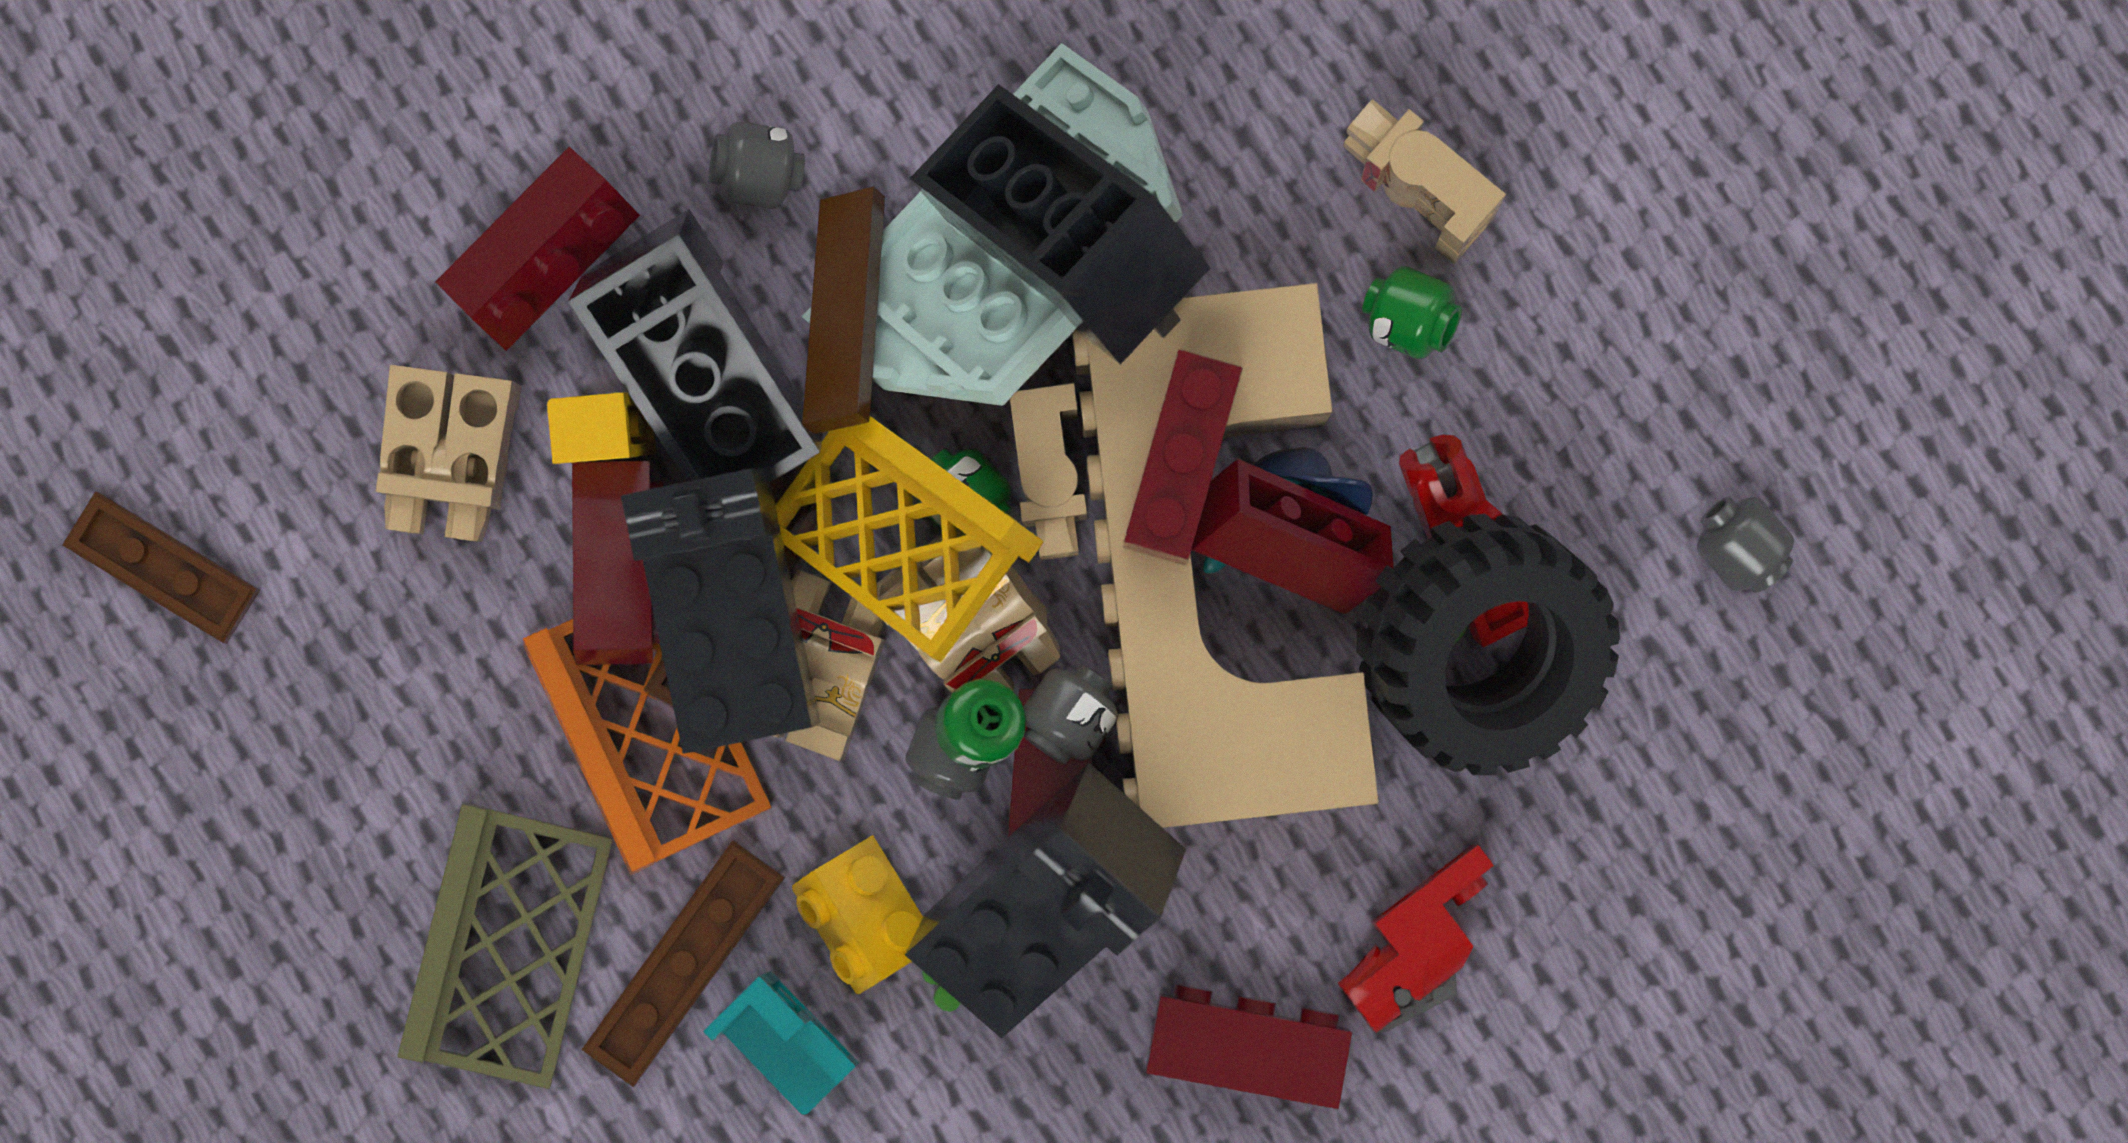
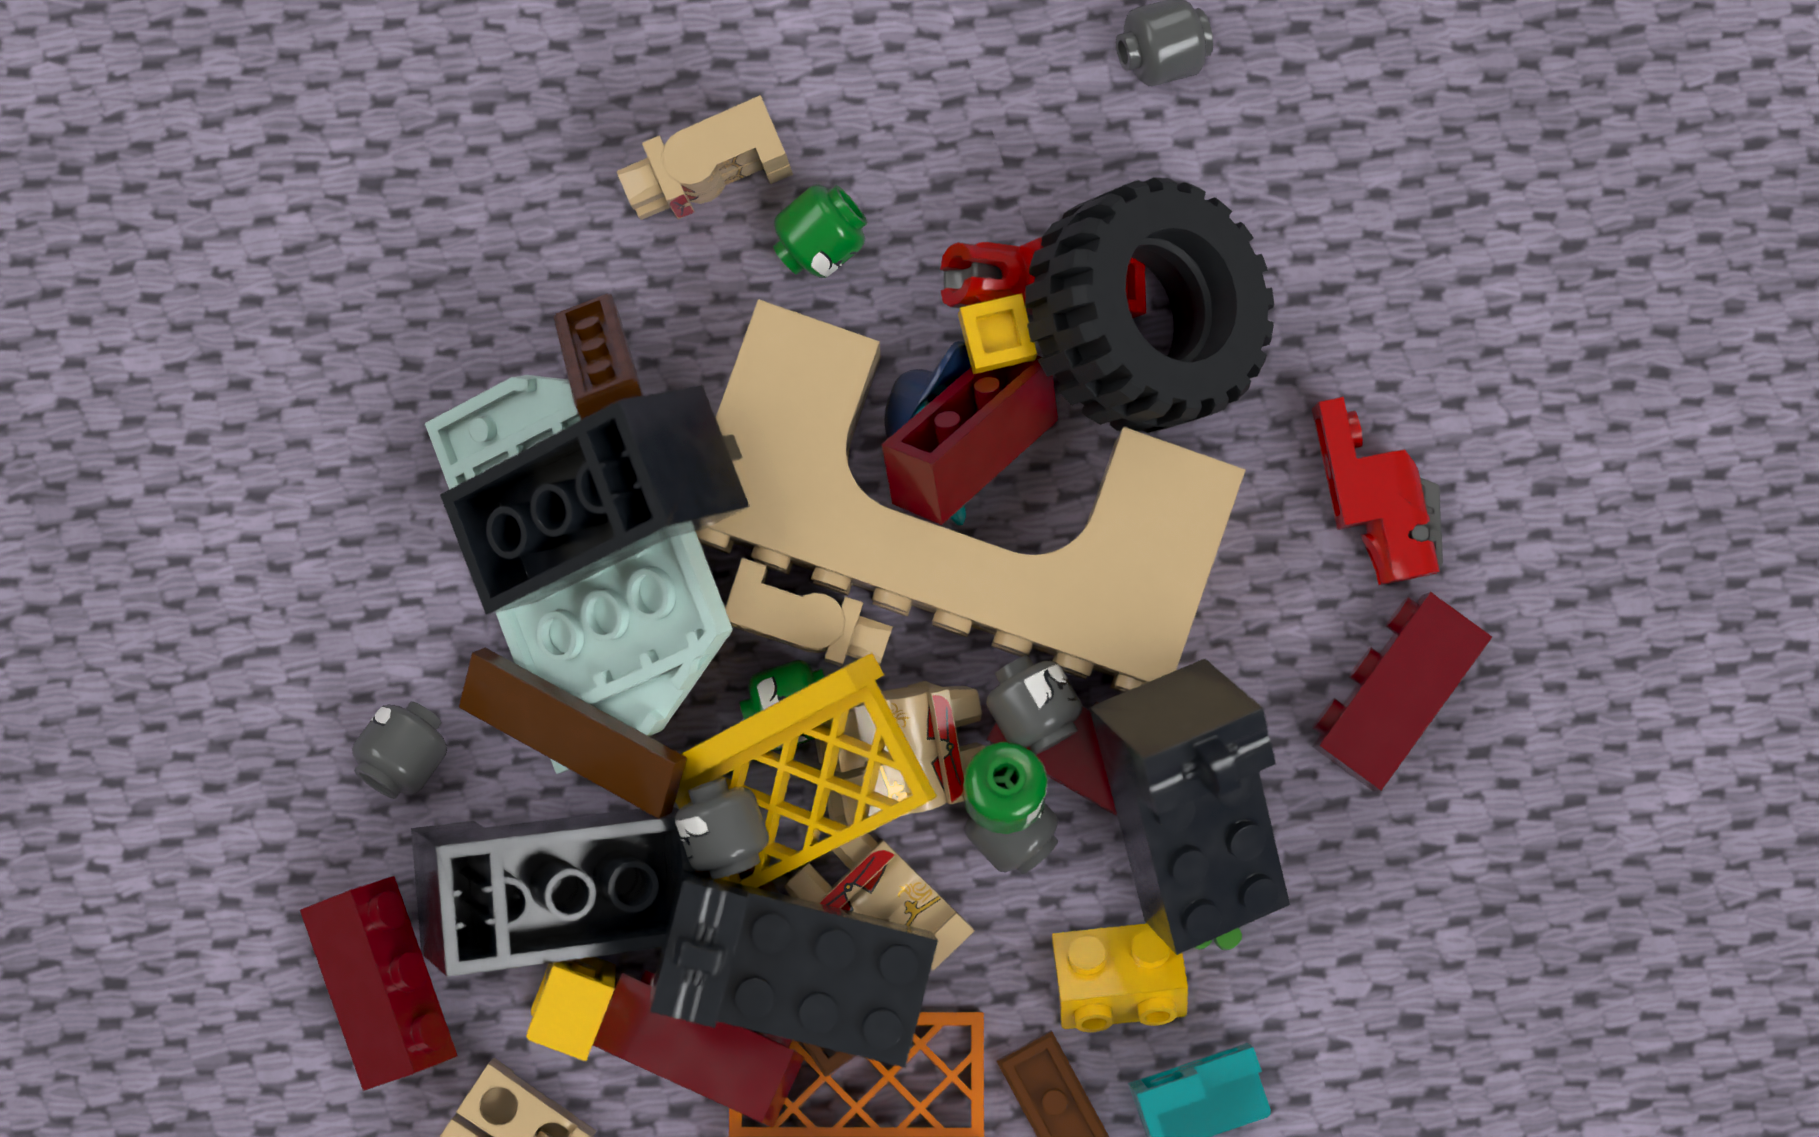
camera: 70 degrees left, 0 degrees up
(819, 484) = (722, 829): none -> dark grey head
(1182, 457) = (858, 491): dark red brick -> none
(1194, 163) = (596, 355): none -> reddish brown tile
(1393, 516) = (997, 333): none -> yellow plate

